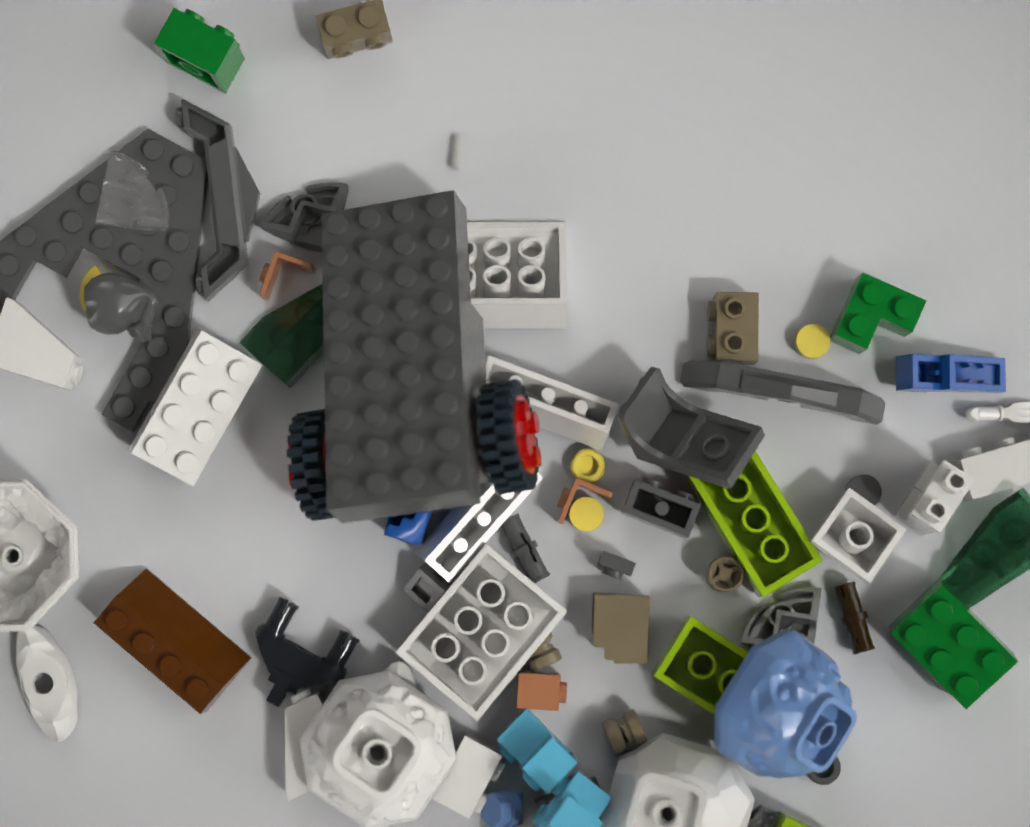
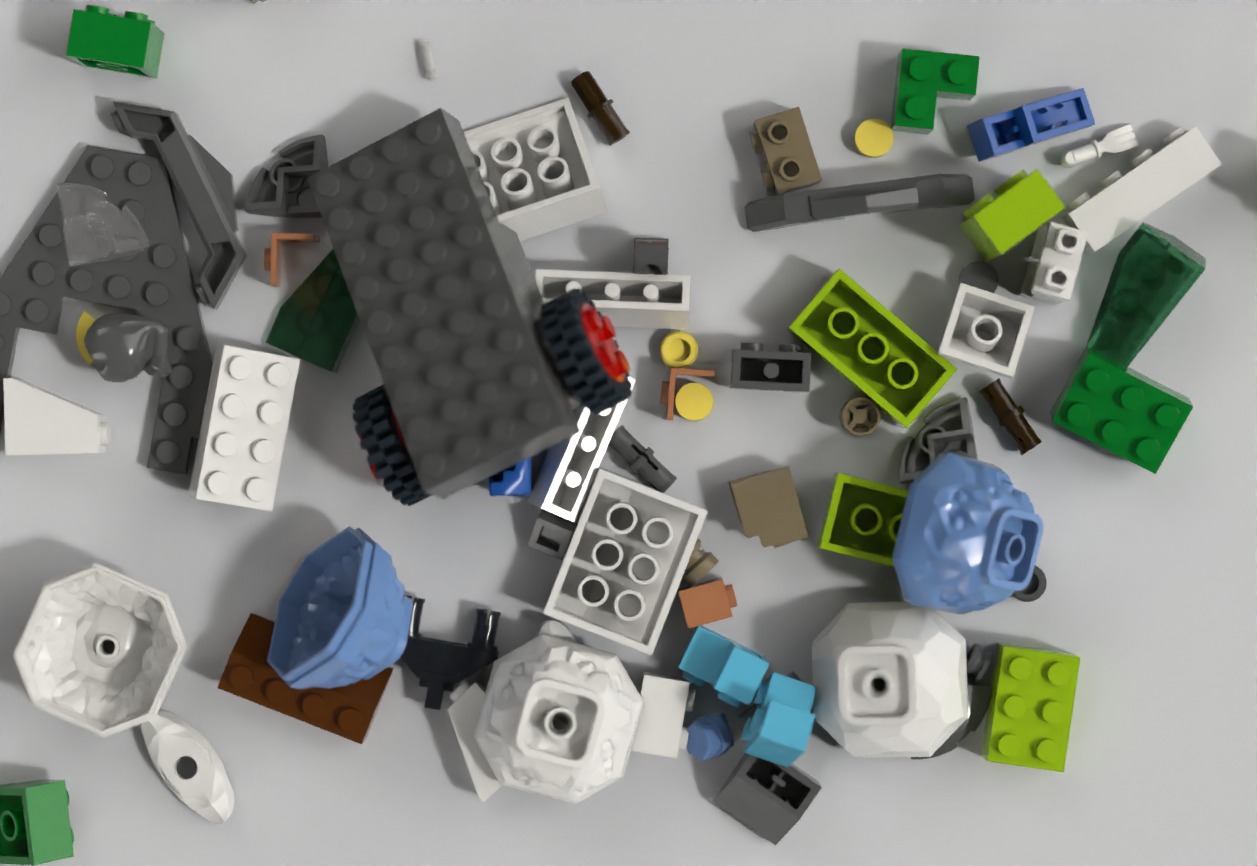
camera: 25 degrees left, 5 degrees up
(220, 596) = (340, 615): none -> medium blue rock
(588, 239) = (599, 107): none -> dark brown axle
(590, 377) = (650, 256): none -> dark grey leg
(615, 565) = (742, 446): dark grey plate -> none
(631, 728) = (816, 611): dark tan wheel -> none
(685, 437) = (770, 286): dark grey bracket -> none
(911, 441) = (1019, 209): none -> lime brick

